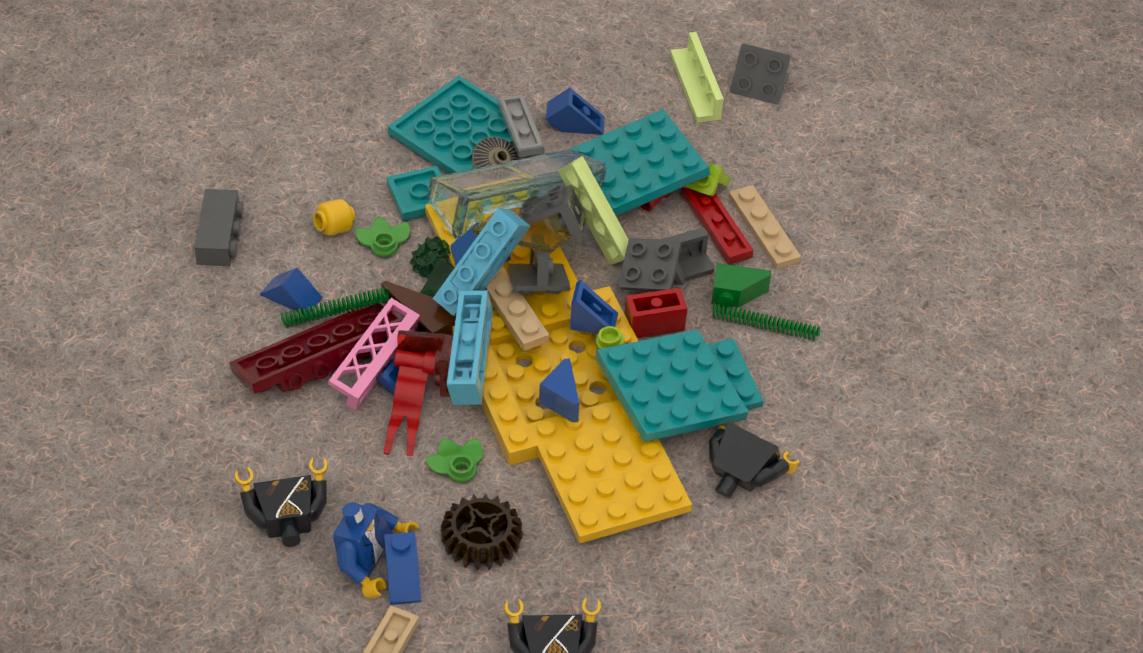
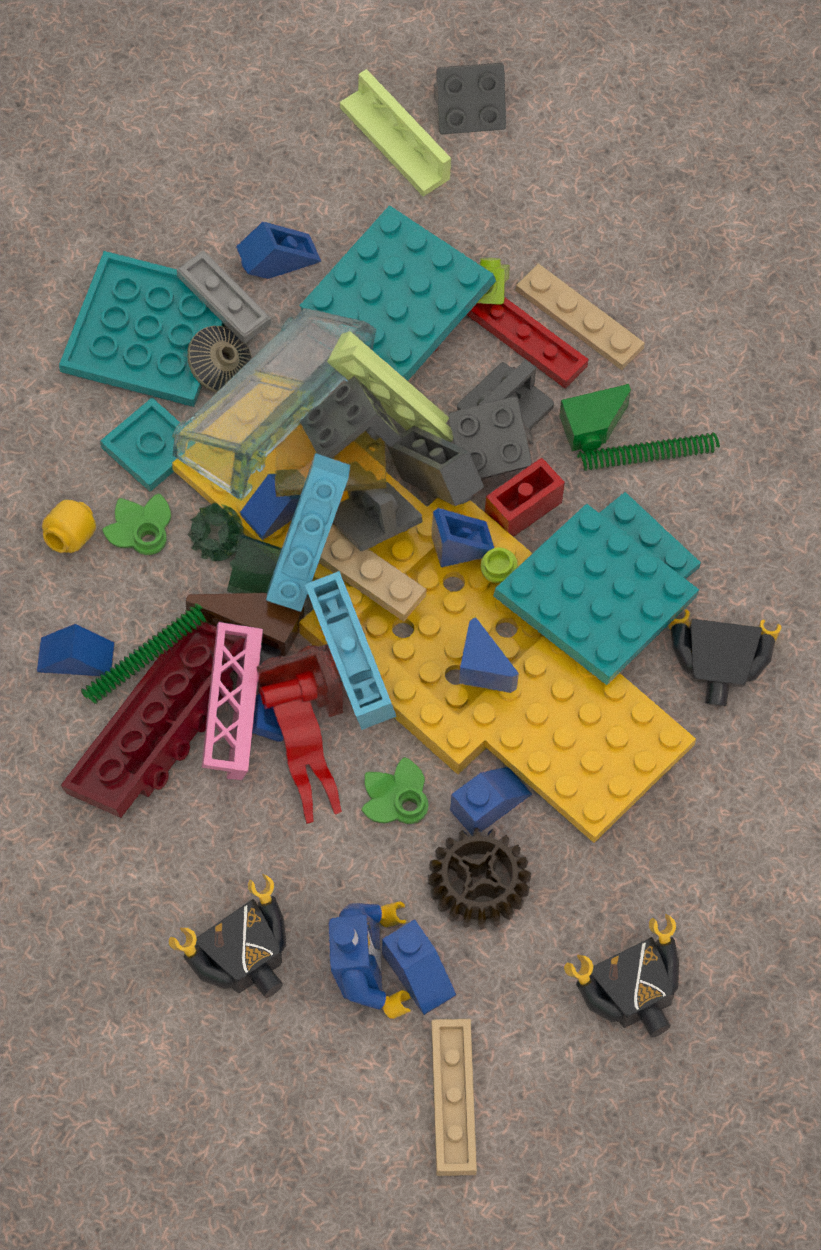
camera: 25 degrees left, 15 degrees up
(519, 483) = (487, 798): none -> blue slope
(601, 266) = (436, 466): none -> dark grey brick

